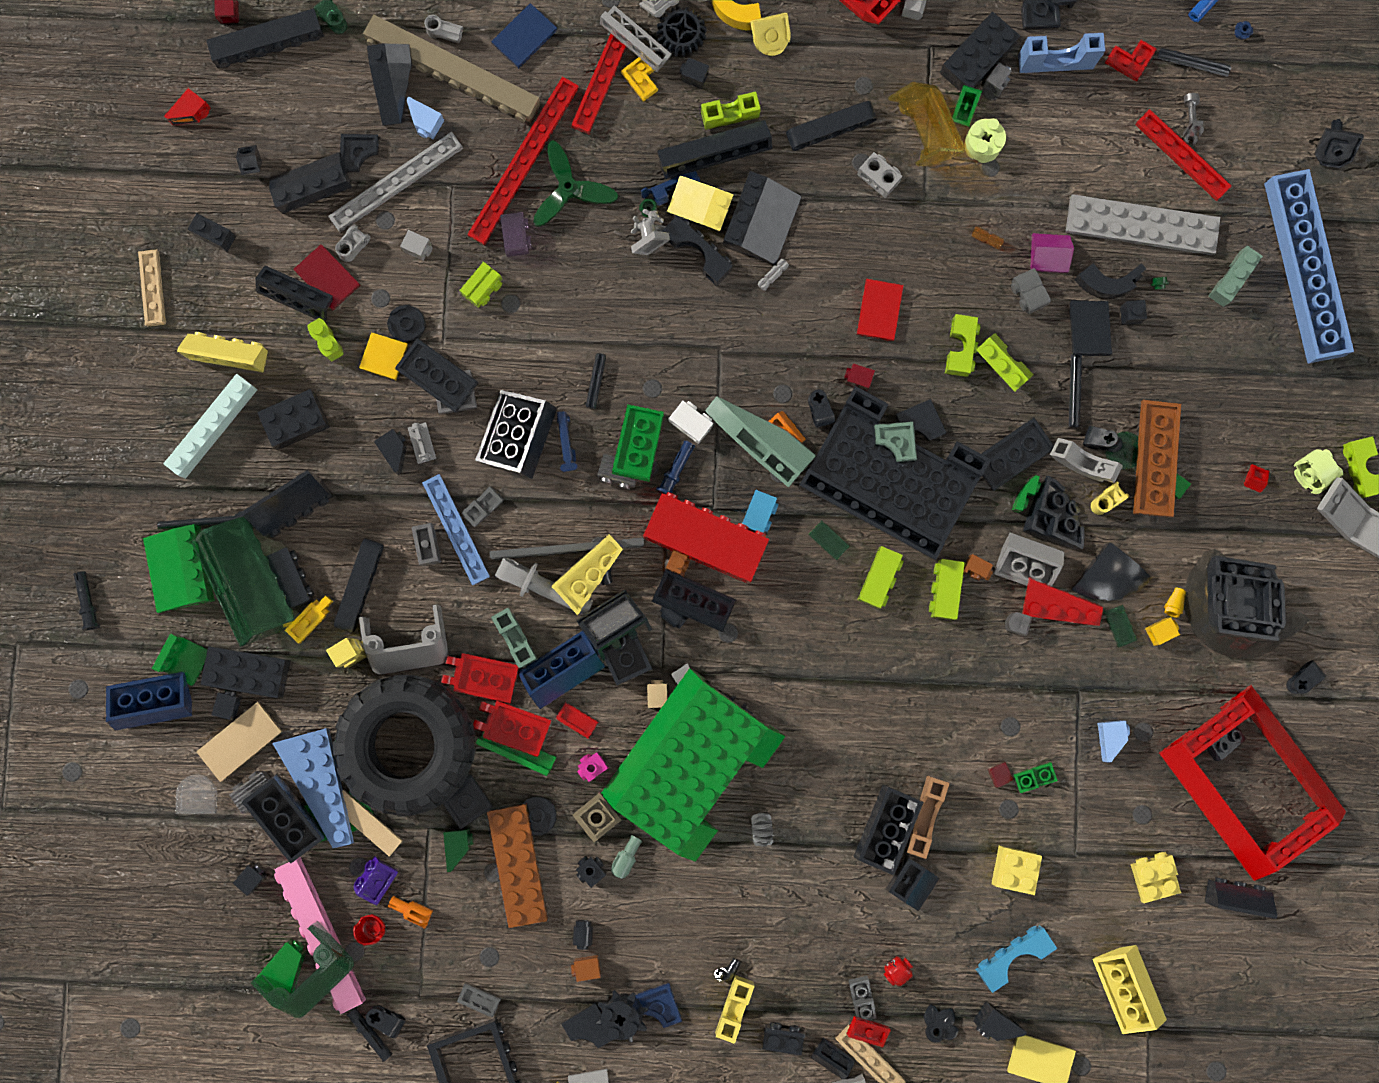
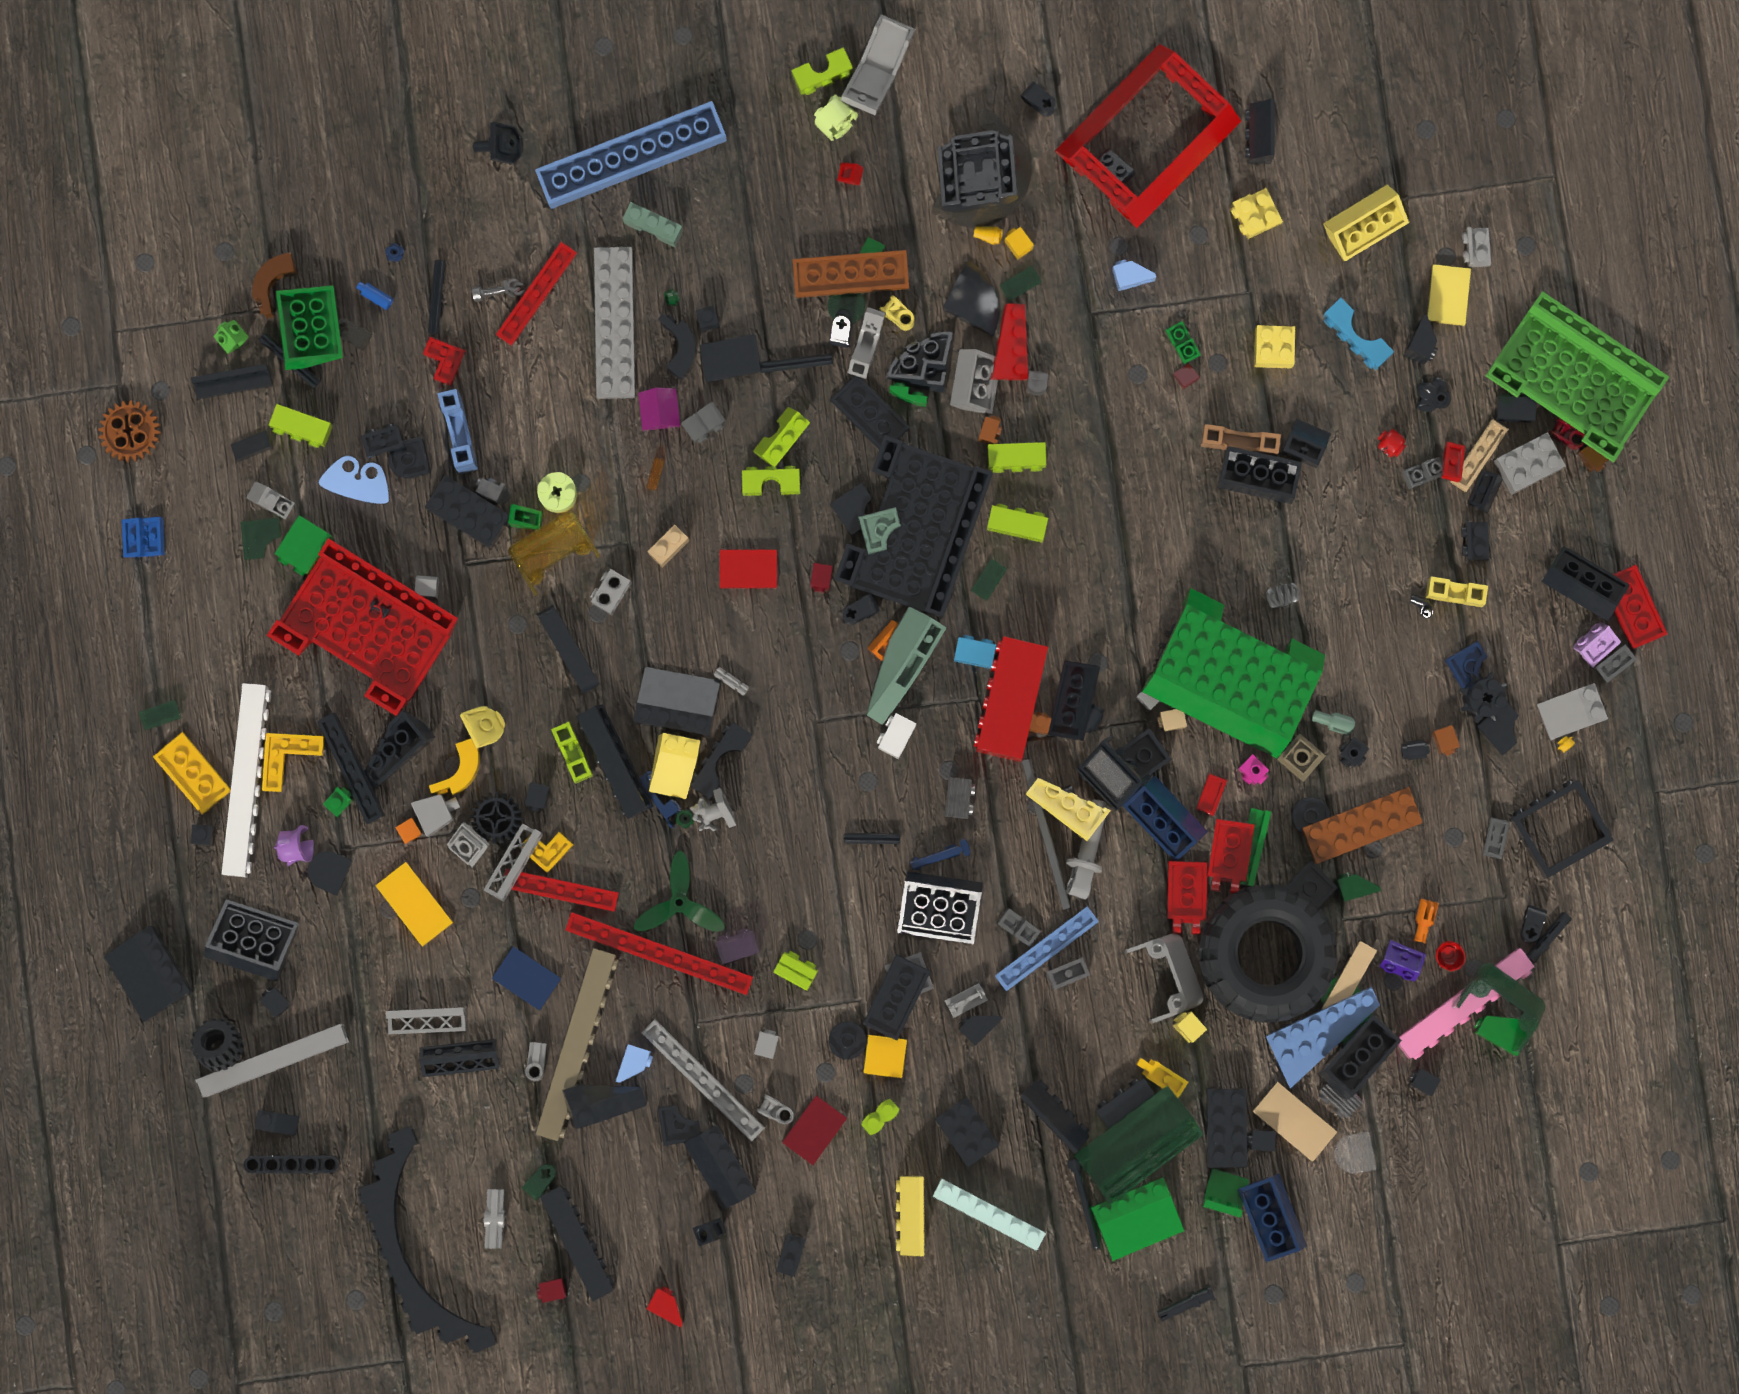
camera: 95 degrees left, 0 degrees up
(152, 288) = (857, 1306): tan tile -> none
(294, 292) = (838, 1158): black fence -> none
(358, 585) = (1120, 1034): black beam -> none
(514, 637) = (1143, 869): sand green arch -> none
(638, 443) = (928, 783): green tile -> none
(672, 476) = (952, 744): dark blue pin -> none
(915, 236) = (668, 546): none -> tan brick

